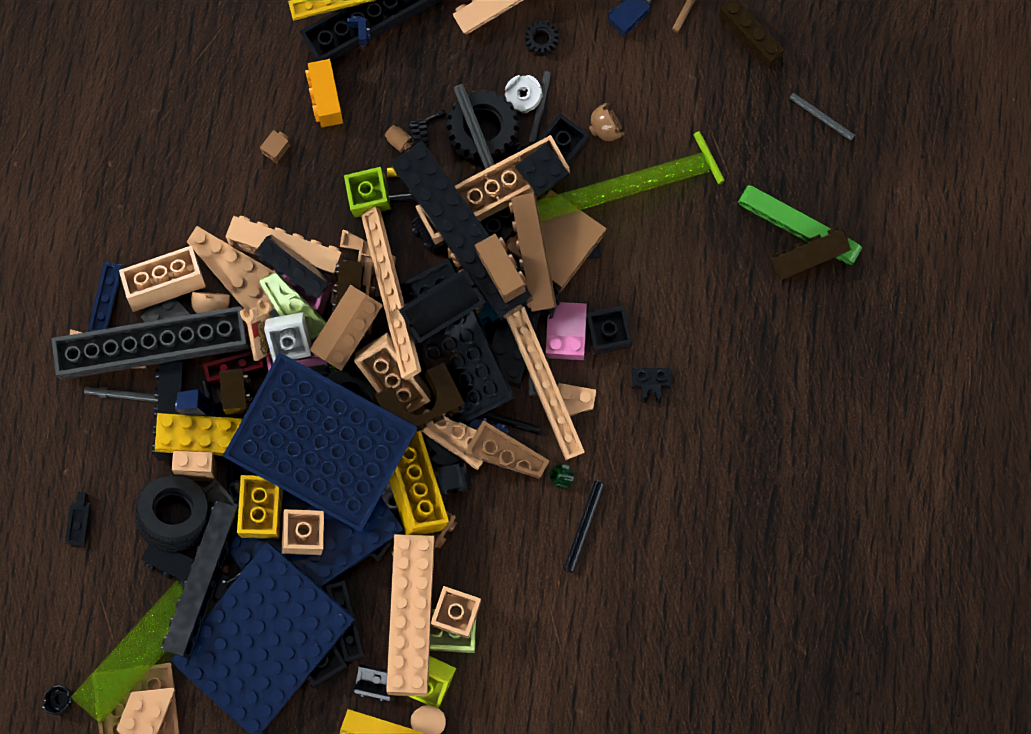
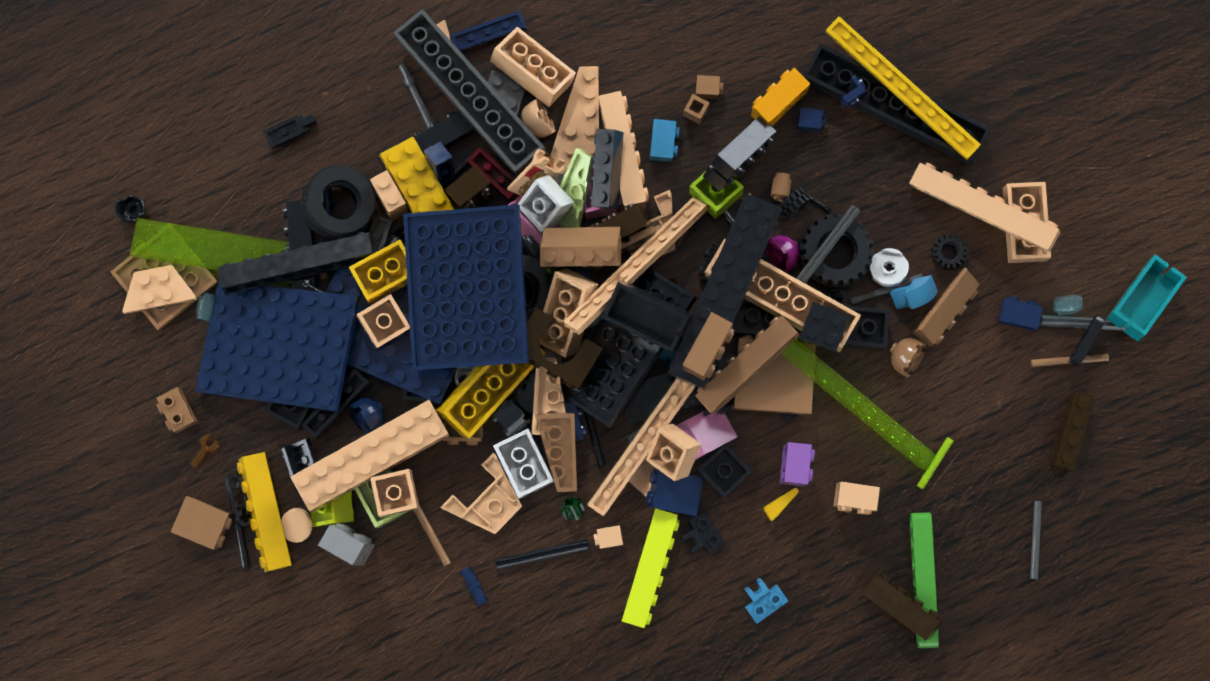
camera: 60 degrees right, 5 degrees up
(187, 686) = (205, 307): none -> clear light blue brick
(288, 166) = (696, 109): none -> medium nougat brick
(296, 210) = (663, 140): none -> dark azure brick
(352, 151) = (740, 154): none -> piece
(358, 80) = (810, 120): none -> dark blue brick
(371, 602) = (367, 414): none -> dark blue cylinder
(457, 168) = (783, 253): none -> magenta cylinder
(474, 680) = (346, 544): none -> light grey brick
(497, 493) = (523, 463): none -> white brick
(510, 610) = (432, 536): none -> medium nougat bar
(517, 540) = (493, 506): none -> light nougat wing
(560, 85) = (916, 294): none -> dark azure brick
(567, 359) = (673, 452): none -> light nougat brick
(575, 599) = (474, 585): none -> dark blue pin
(586, 67) = (946, 308): none -> medium nougat slope
(601, 381) = (674, 496): none -> dark blue brick
(604, 460) = (608, 537): none -> light nougat brick
(640, 266) = (796, 464): none -> medium lavender brick
(652, 442) = (650, 568): none -> neon yellow brick
(666, 310) = (774, 508): none -> yellow slope
(698, 235) = (856, 497): none -> light nougat brick
(737, 364) = (764, 601): none -> dark azure plate

